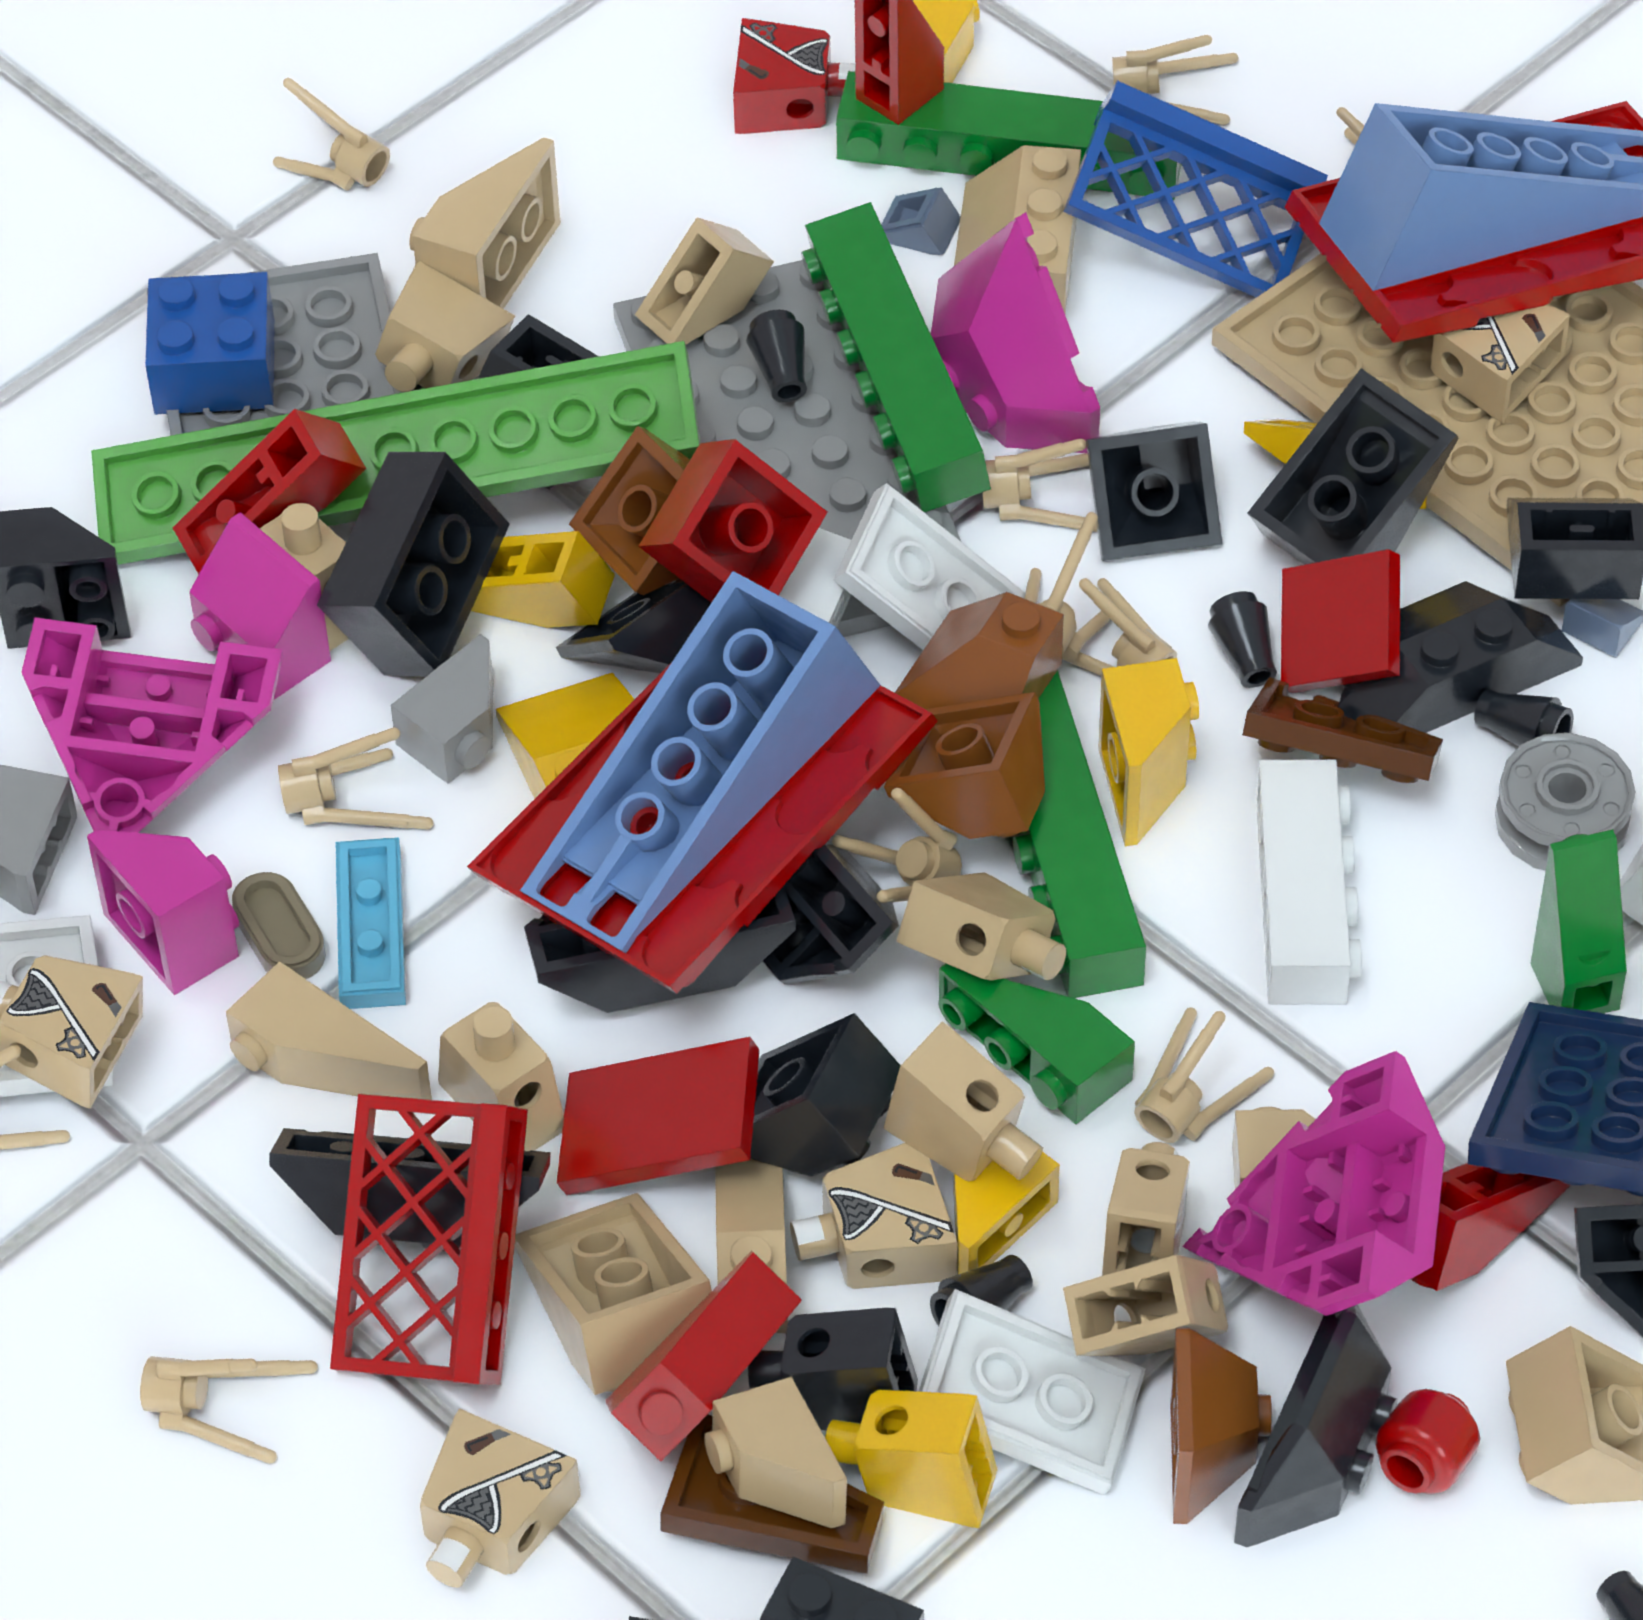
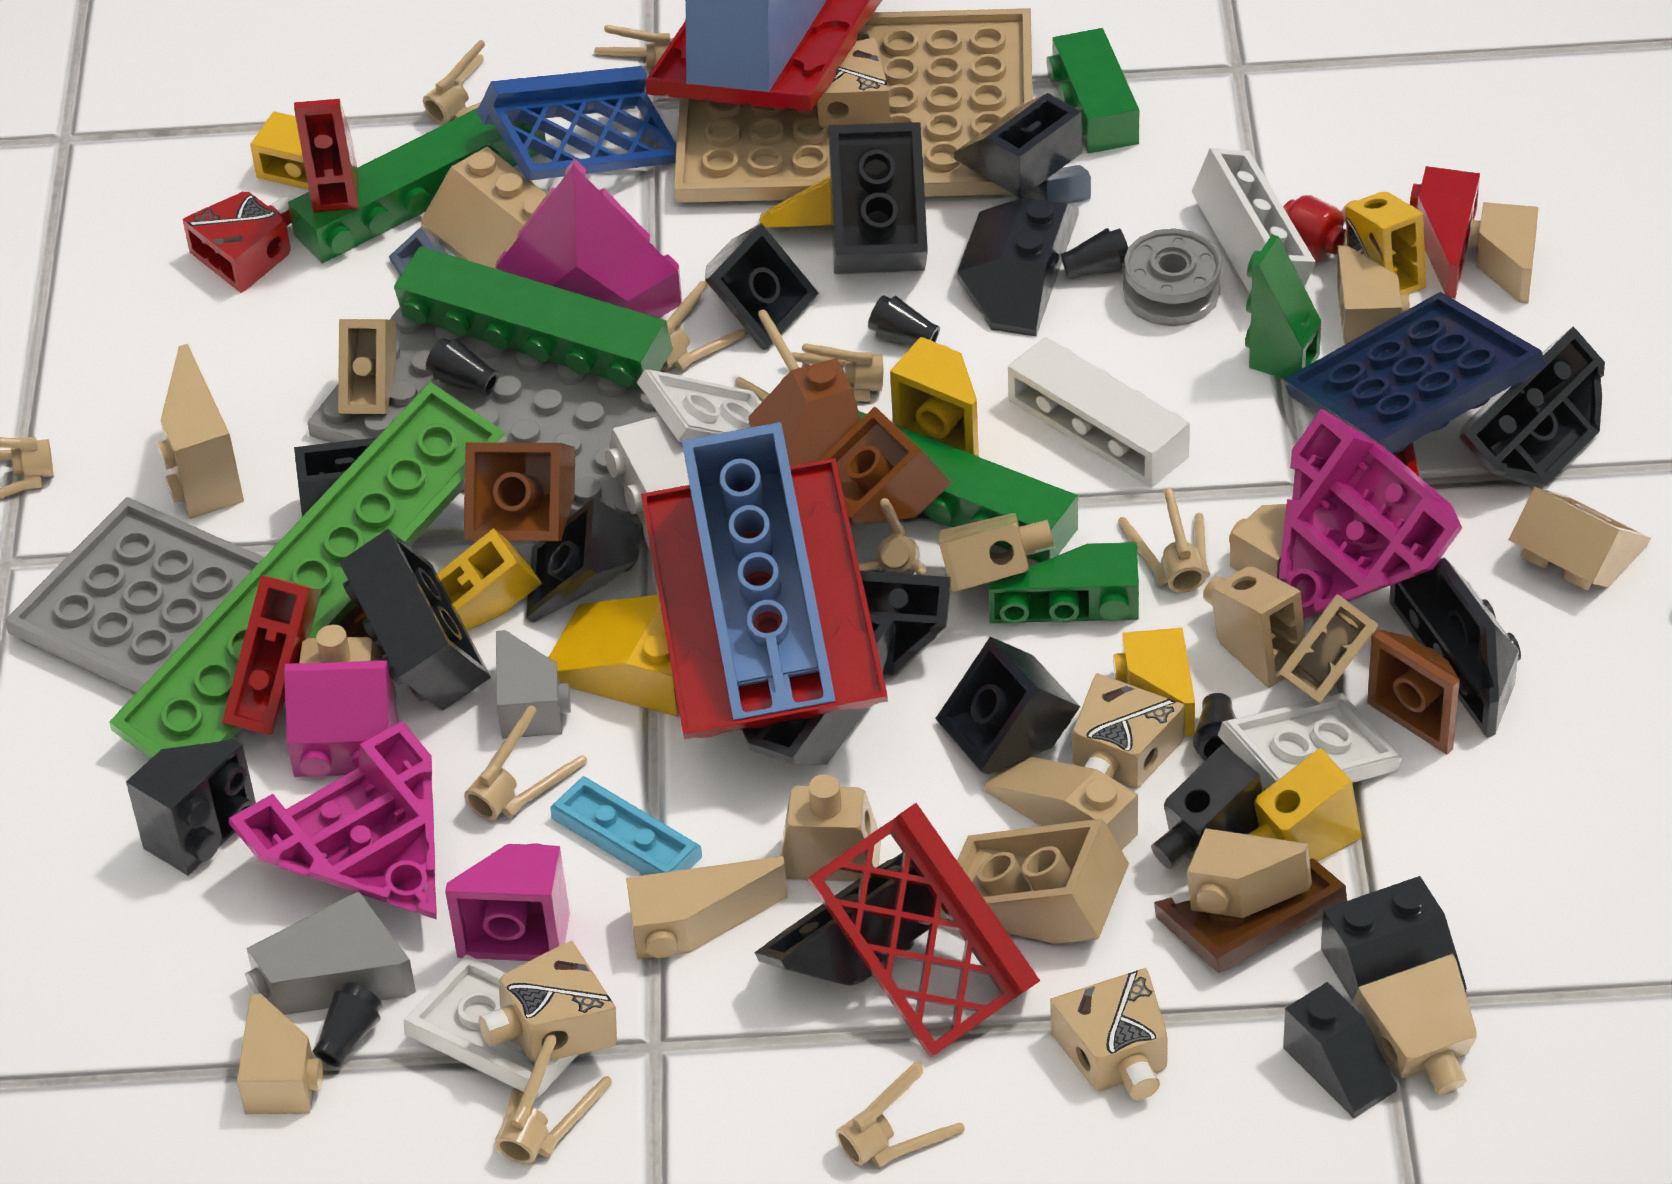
camera: 45 degrees left, 5 degrees down
(210, 342) = (106, 608): blue brick -> none
(278, 924) = (593, 878): dark tan tile -> none
(439, 332) = (233, 504): tan torso -> none
(658, 1116) = (947, 769): red tile -> none
(703, 1356) = (1142, 869): red slope -> none
(732, 517) = (603, 447): red brick -> none
(960, 1109) = (1117, 631): tan torso -> none
(1322, 728) = (1041, 318): reddish brown wing -> none
(1341, 621) = (955, 270): red tile -> none
(1427, 1441) = (1523, 605): red head -> none

